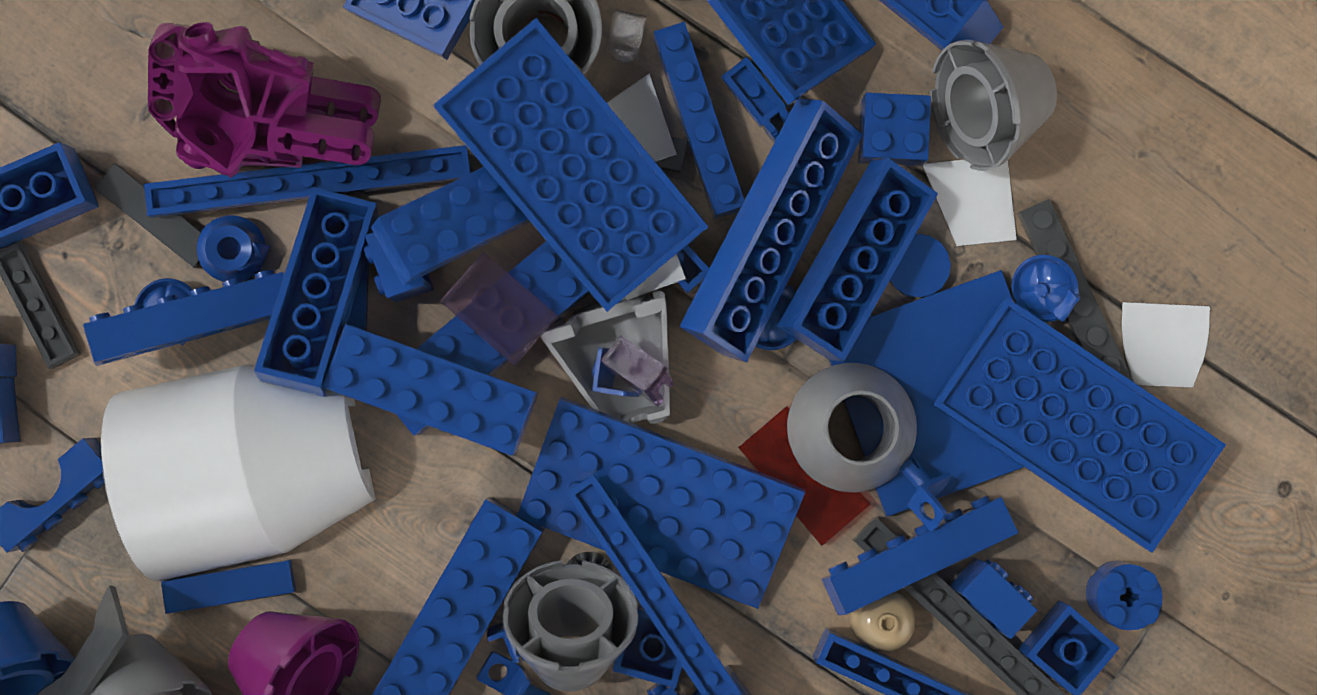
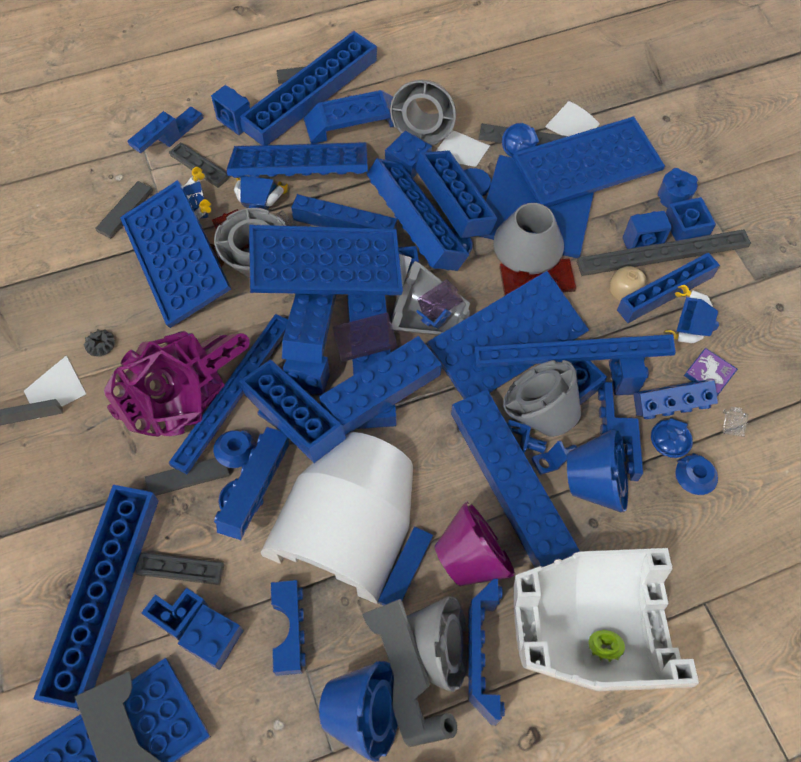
camera: 55 degrees left, 25 degrees down
(755, 96) = (355, 194): blue hinge -> none
(919, 555) = (607, 249): blue brick -> none
(926, 491) = (578, 226): blue bracket -> none

